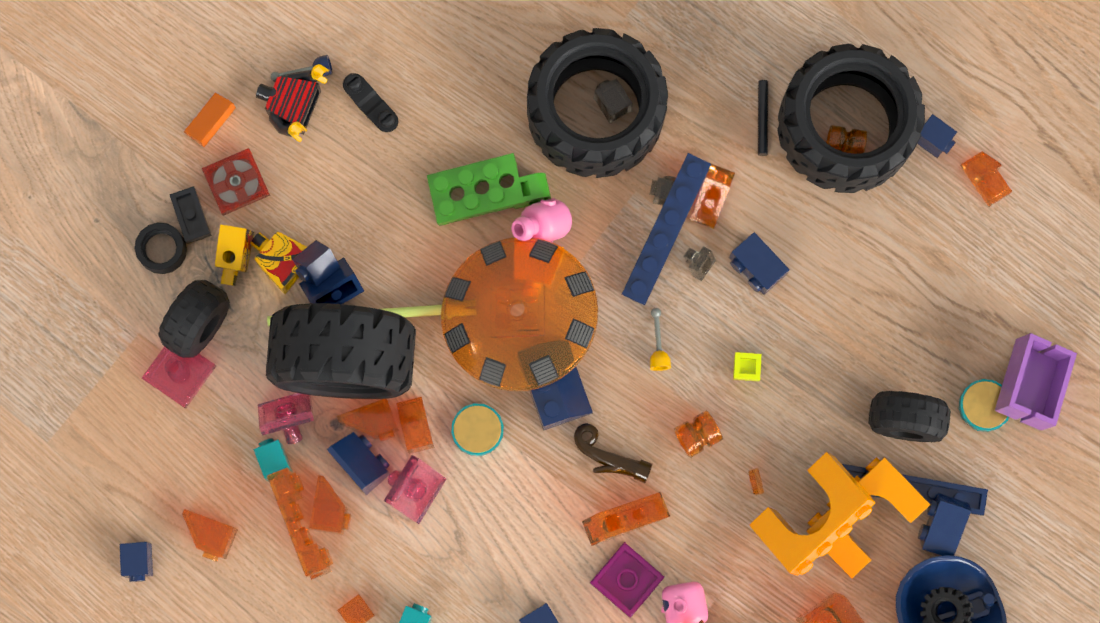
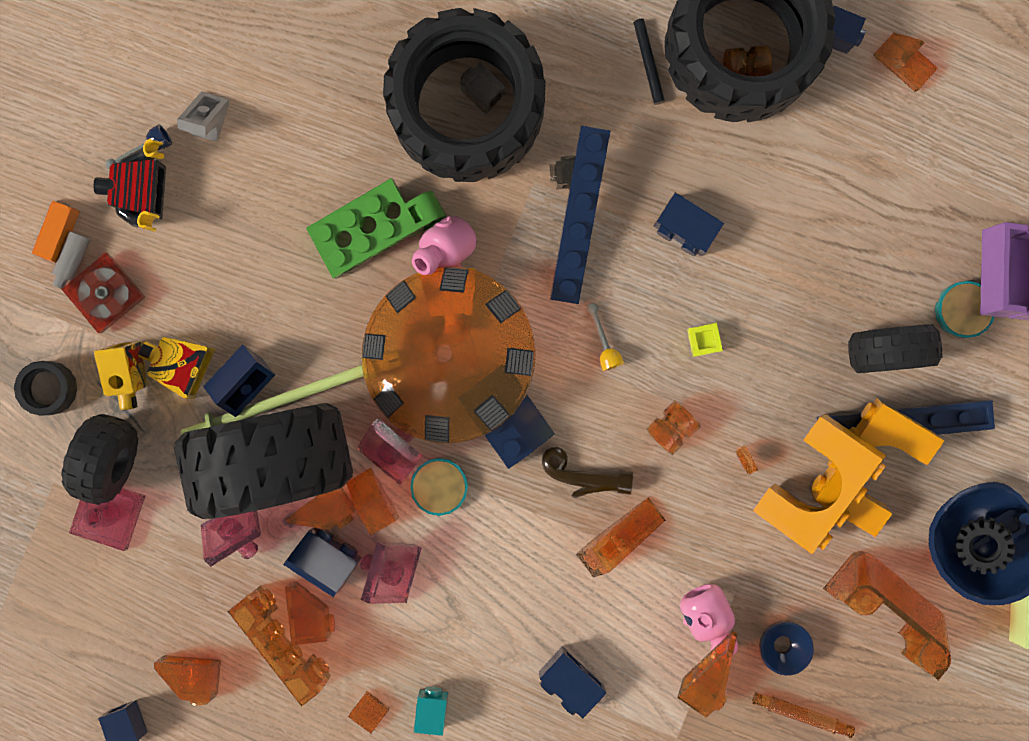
camera: 10 degrees left, 10 degrees up
(190, 215) = (65, 343): black plate -> none
(215, 145) = (69, 259): none -> light grey cylinder
(271, 457) = (232, 580): teal brick -> none
(315, 263) = (212, 362): dark blue brick -> none
(368, 59) = (204, 116): none -> light grey slope
(370, 102) = (221, 164): black piece -> none
(444, 383) = (390, 450): none -> clear pink tile
(627, 580) = (639, 599): magenta tile -> none
(699, 262) = (624, 241): clear smoke tile -> none
(712, 196) = (619, 164): clear orange slope -> none
(945, 525) = (961, 453): dark blue brick -> none

